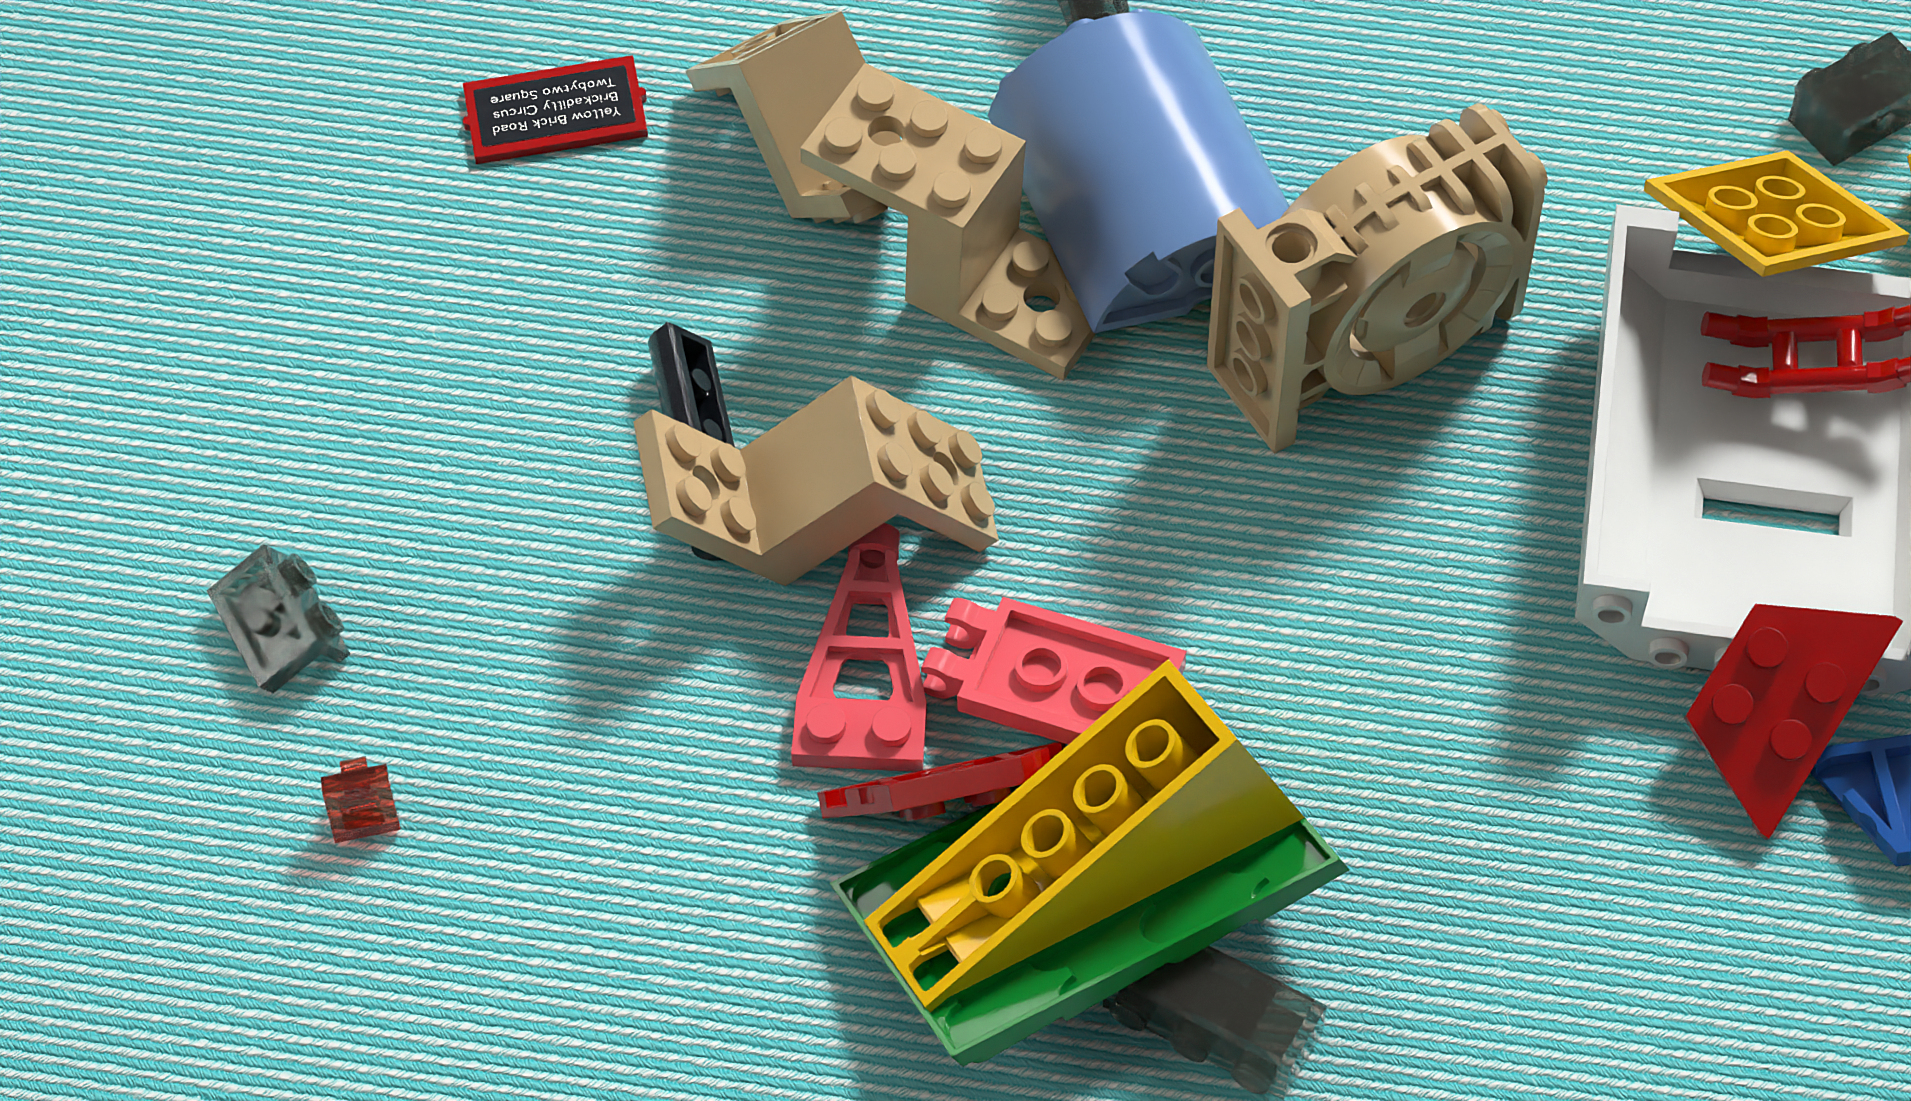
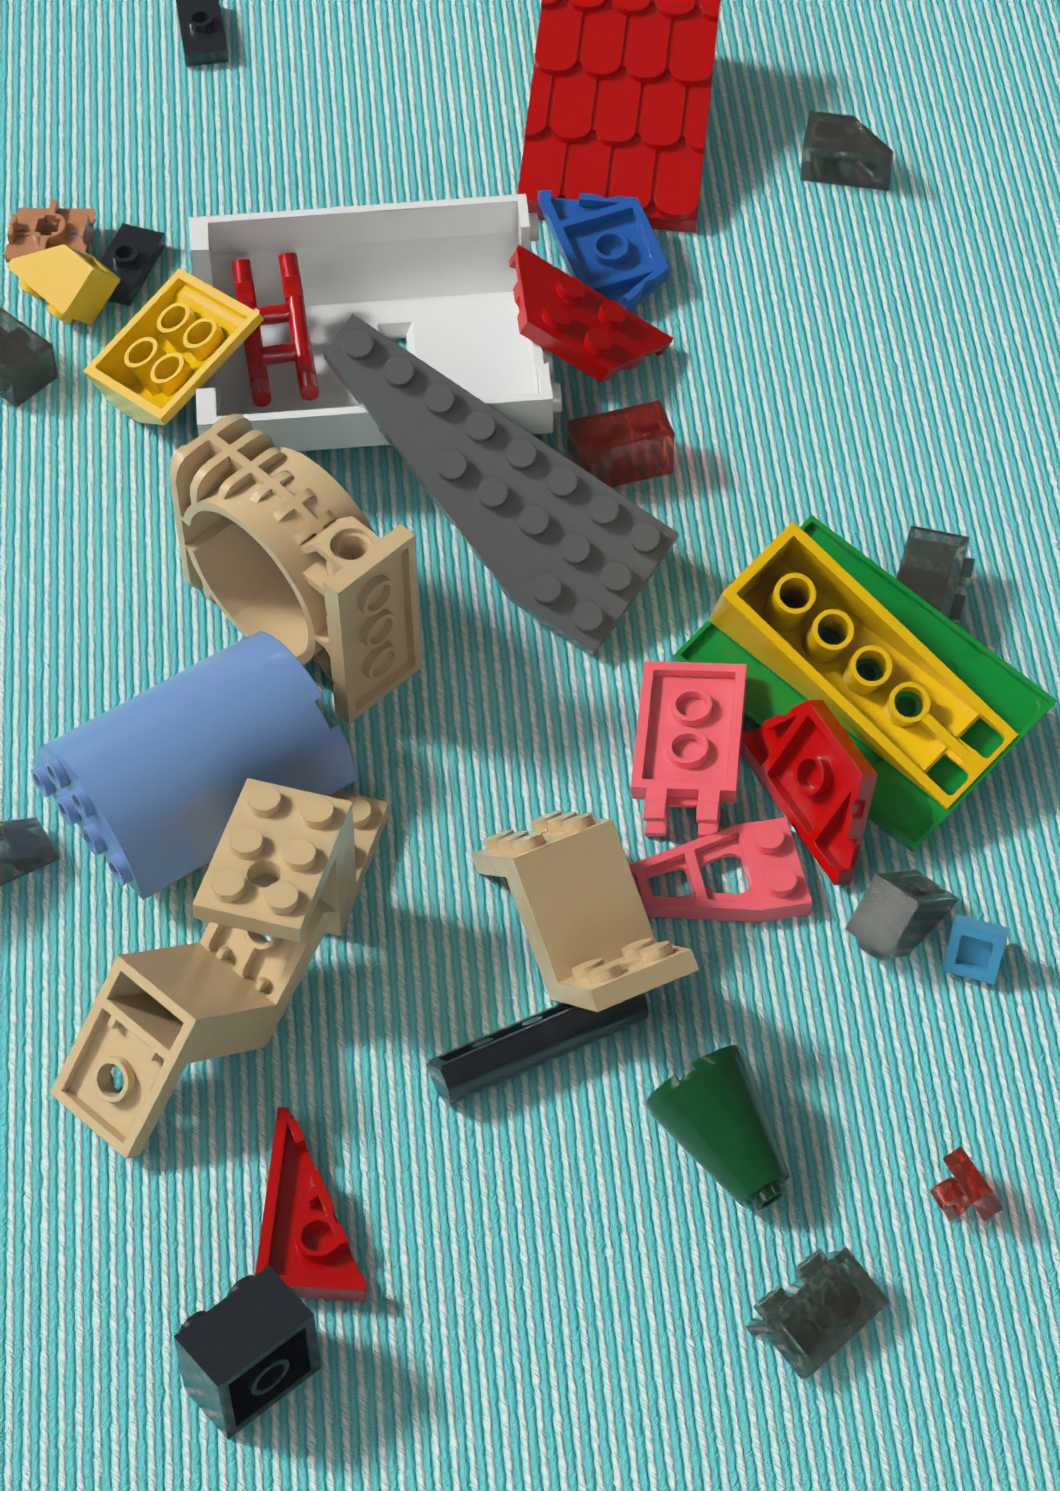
camera: 105 degrees left, 5 degrees down
(411, 109) = (247, 1350): none -> black brick
(510, 574) = (724, 1126): none -> dark green cone
(546, 196) = (300, 1224): none -> red wing
(555, 109) = (176, 1256): piece -> none
(665, 902) = (975, 949): none -> dark azure tile
(744, 840) = (898, 913): none -> clear smoke slope
(1423, 558) = (532, 516): none -> dark grey wing
(1563, 715) = (623, 444): none -> clear red brick

